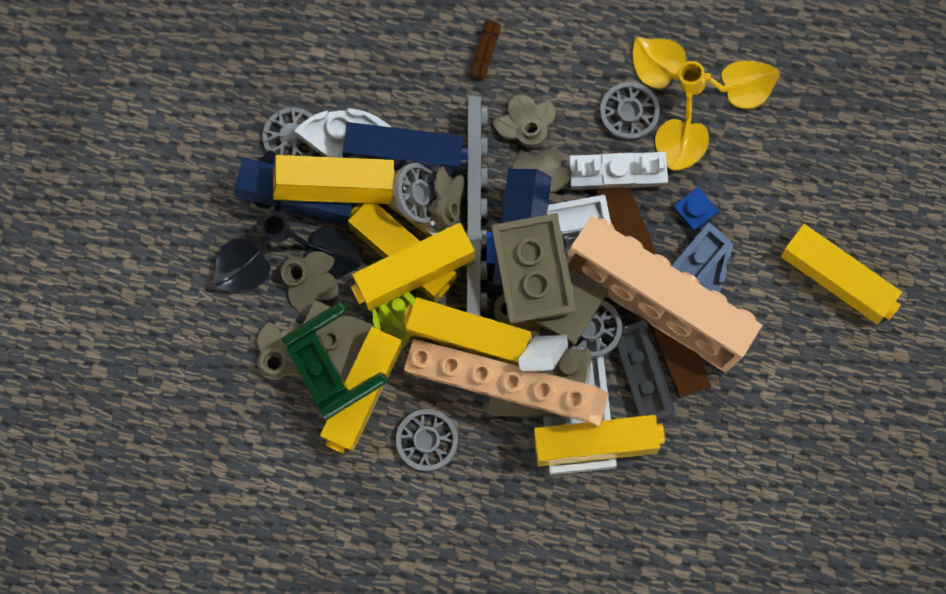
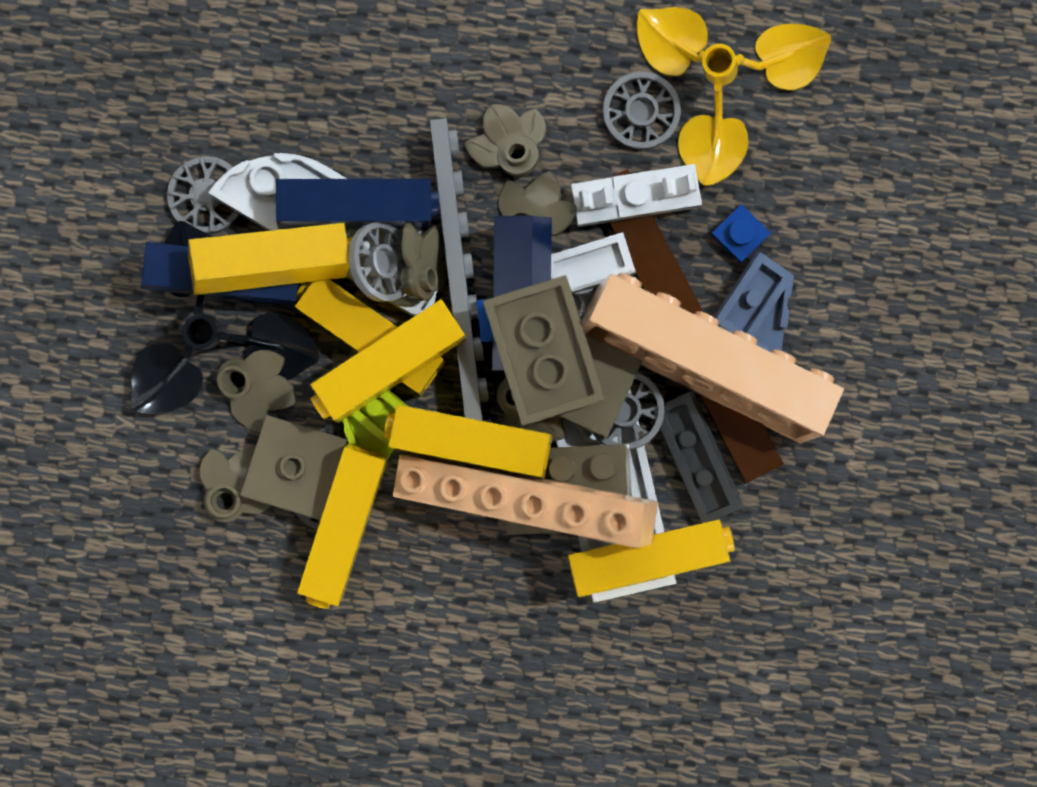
camera: 10 degrees left, 10 degrees up
(319, 369) = (285, 511): dark green plate -> none
(426, 440) = (432, 576): light grey wheel -> none
(484, 50) = (443, 49): reddish brown axle -> none
(543, 353) = (569, 460): white tile -> none
(842, 275) = (936, 300): yellow brick -> none

